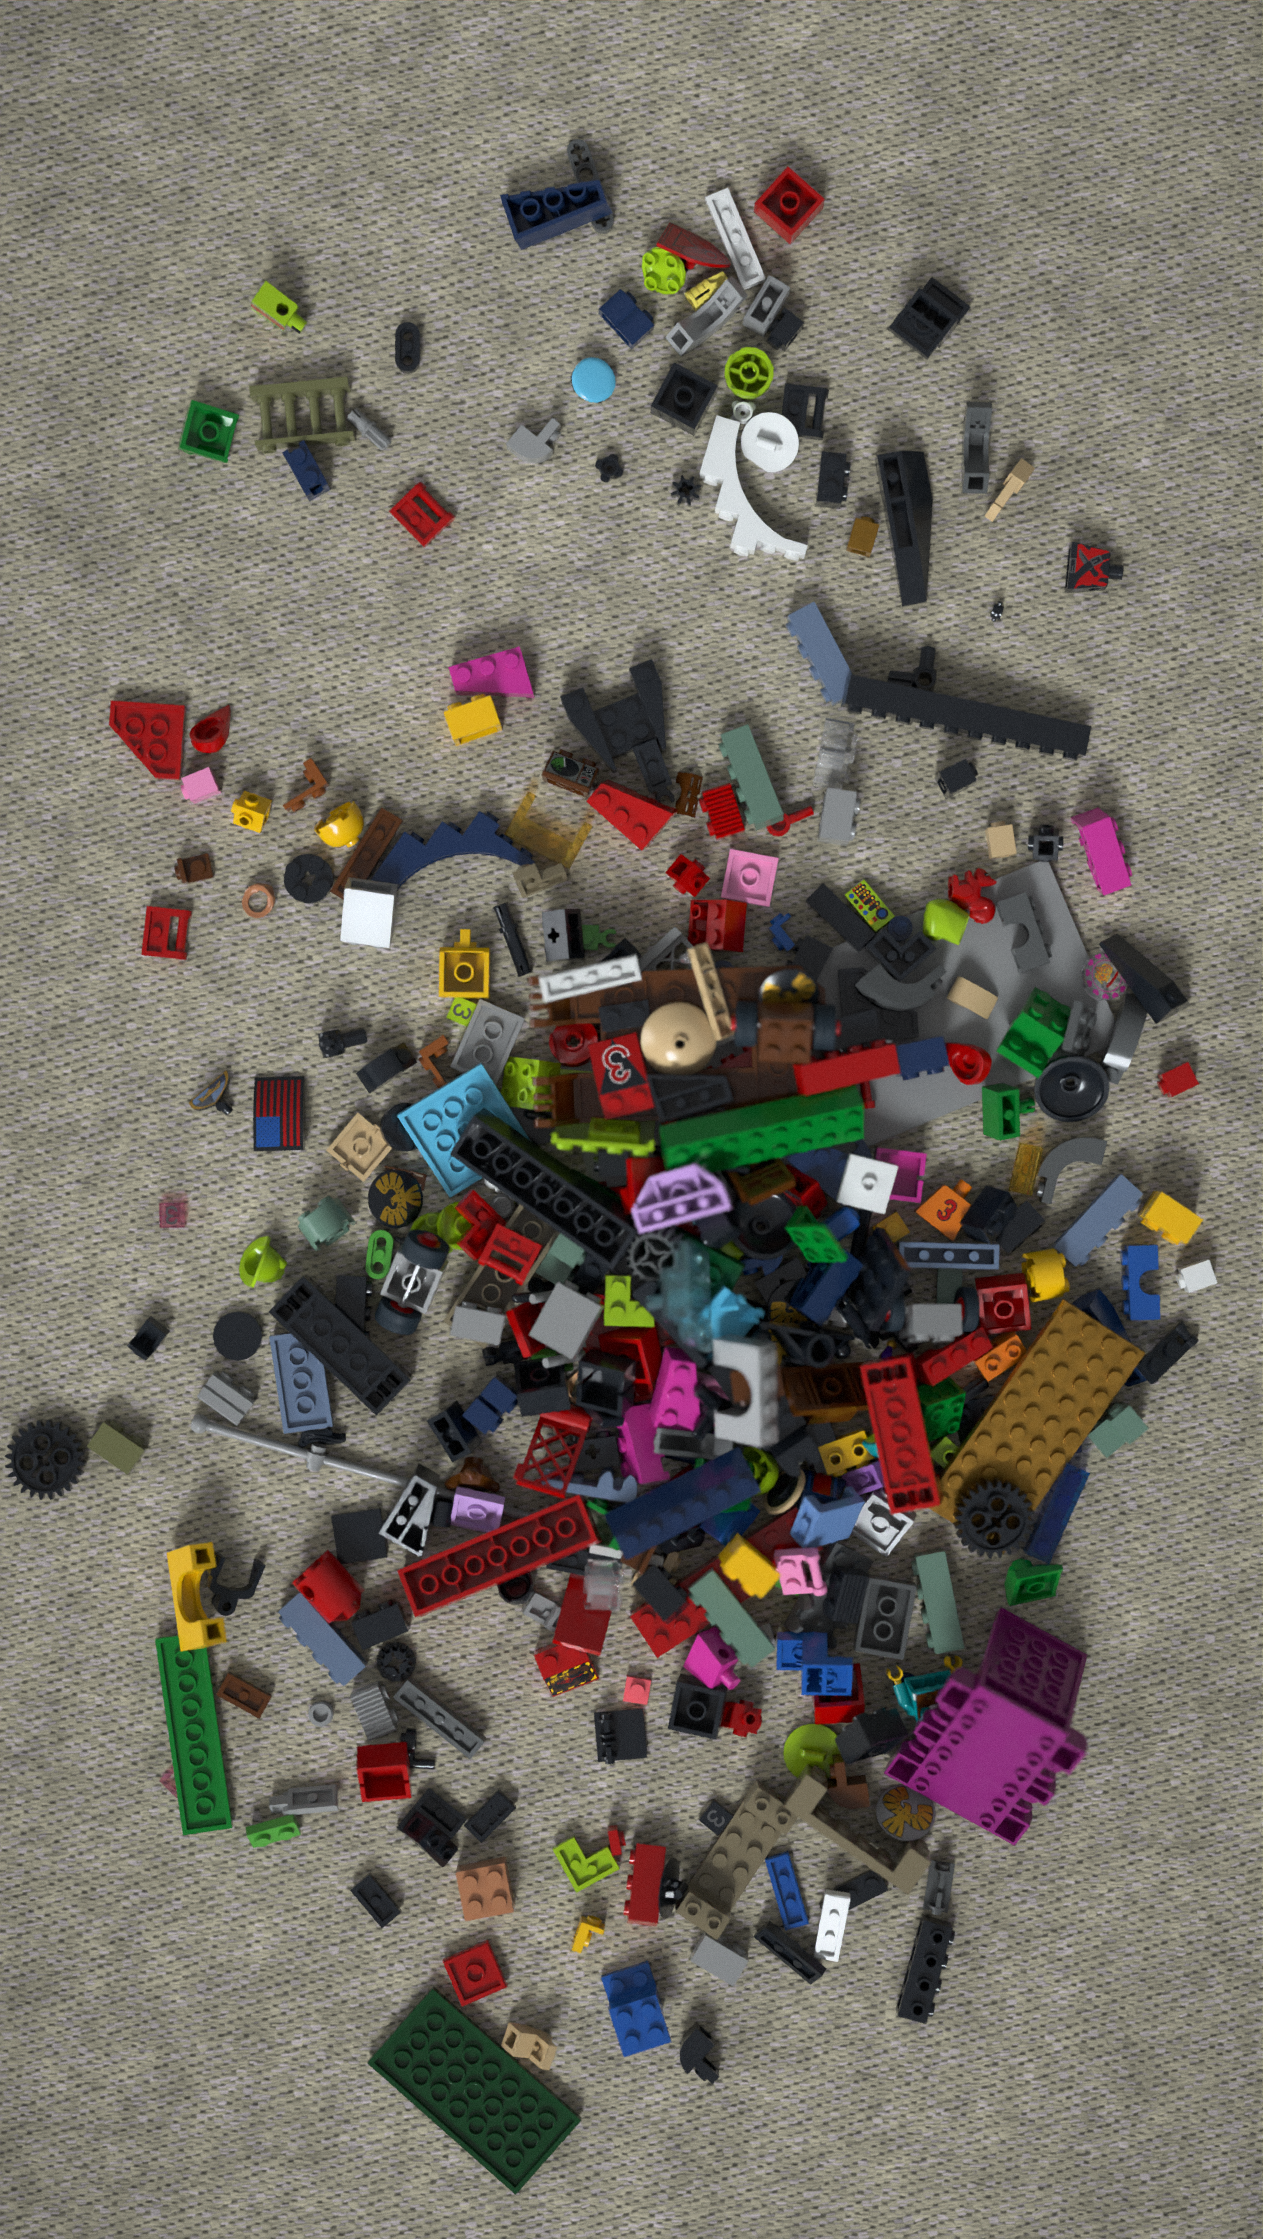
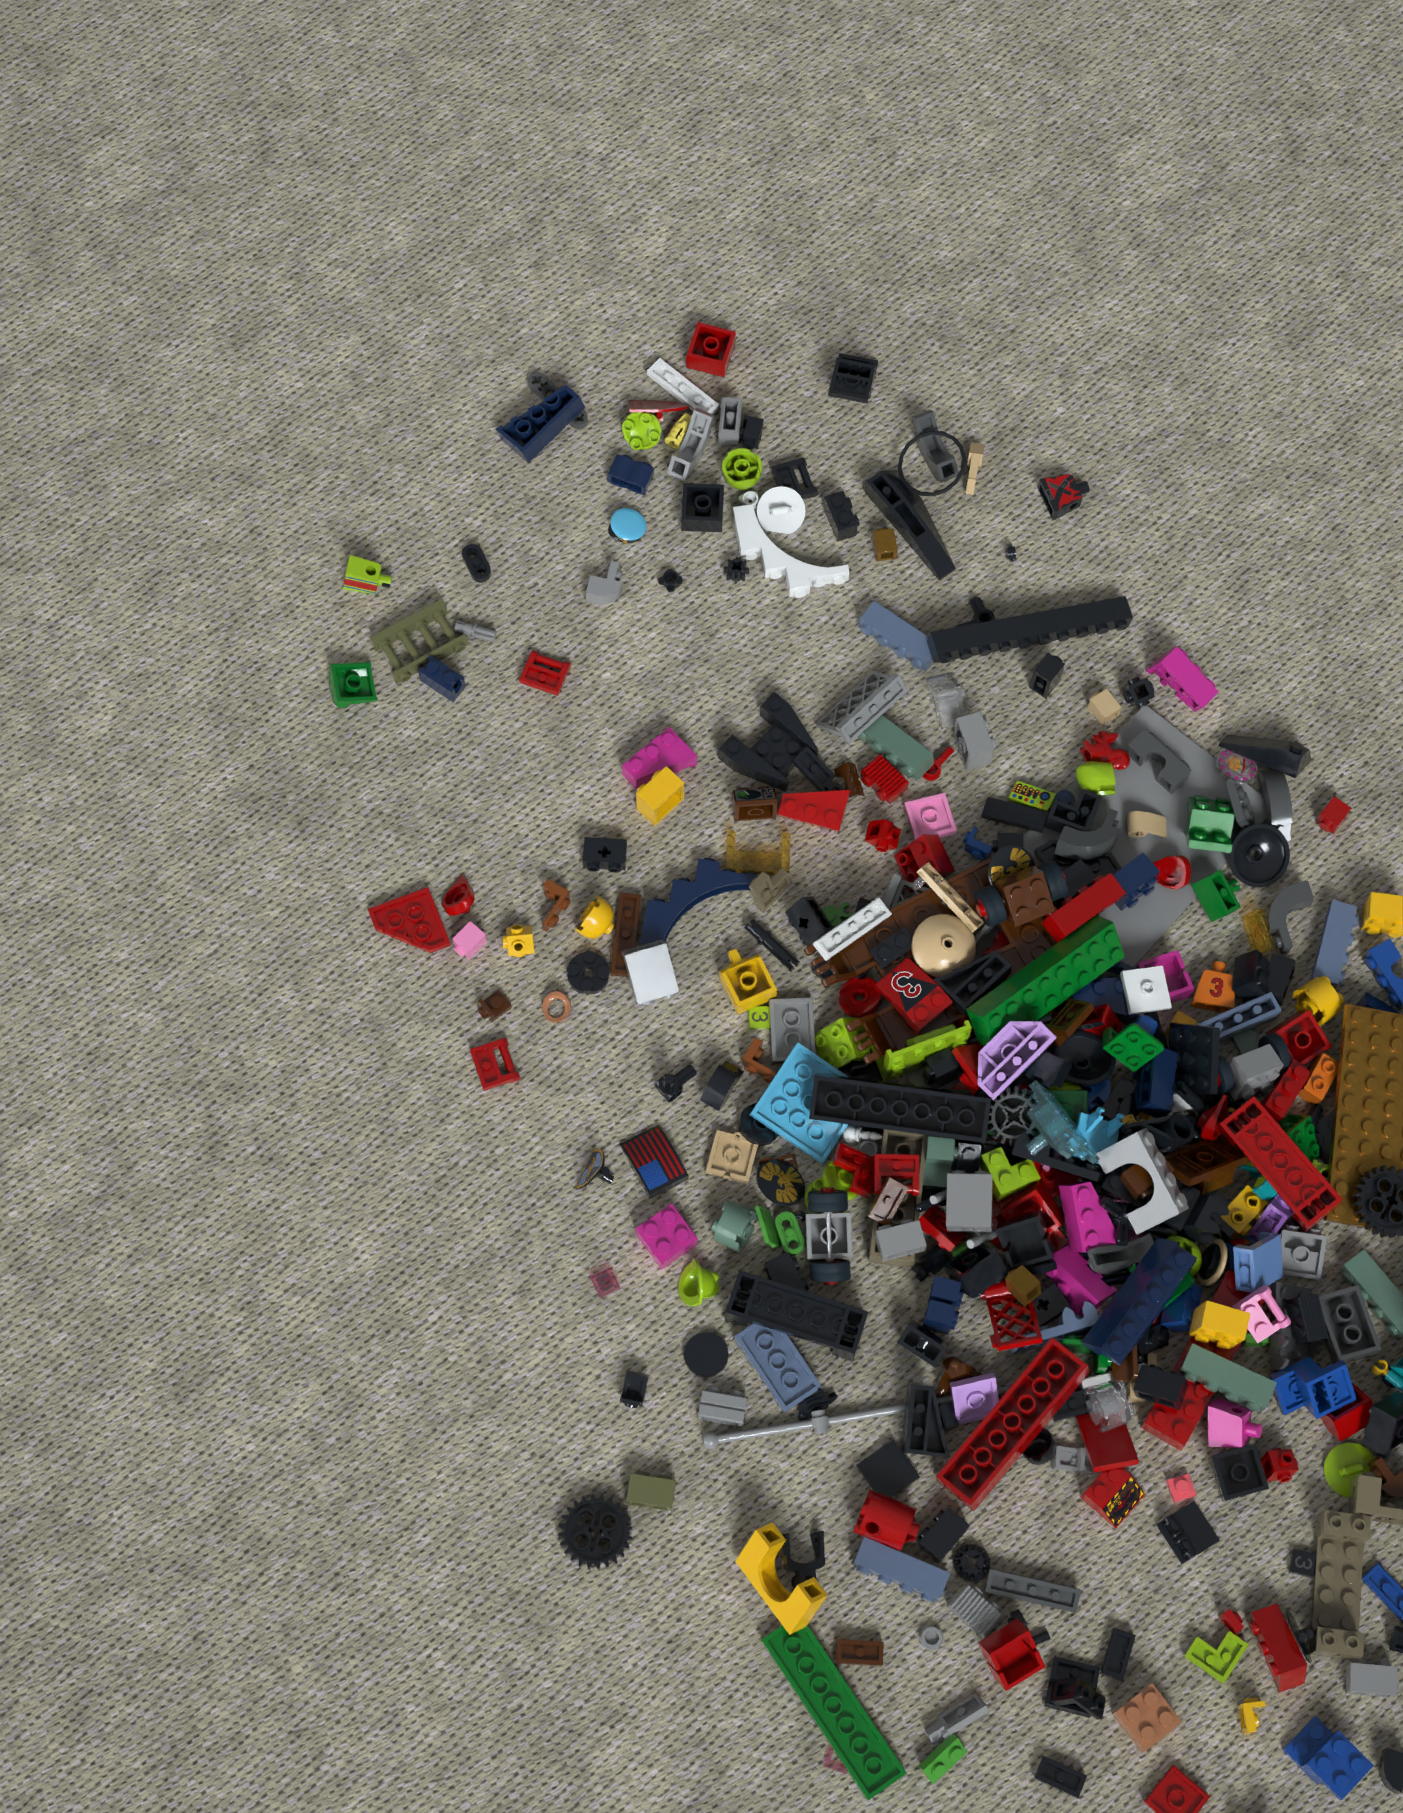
camera: 25 degrees left, 20 degrees down
(253, 1199) = (666, 1236): none -> dark pink brick
(358, 1239) = (767, 1226): none -> bright green piece
(400, 757) = (596, 847): none -> black brick
(485, 1279) = (888, 1201): none -> plate
(578, 1427) = (1023, 1285): none -> pearl gold brick
(742, 728) = (872, 705): none -> light grey fence
(863, 1350) = (1211, 1119): none -> red piece
(991, 489) = (950, 485): none -> black piece

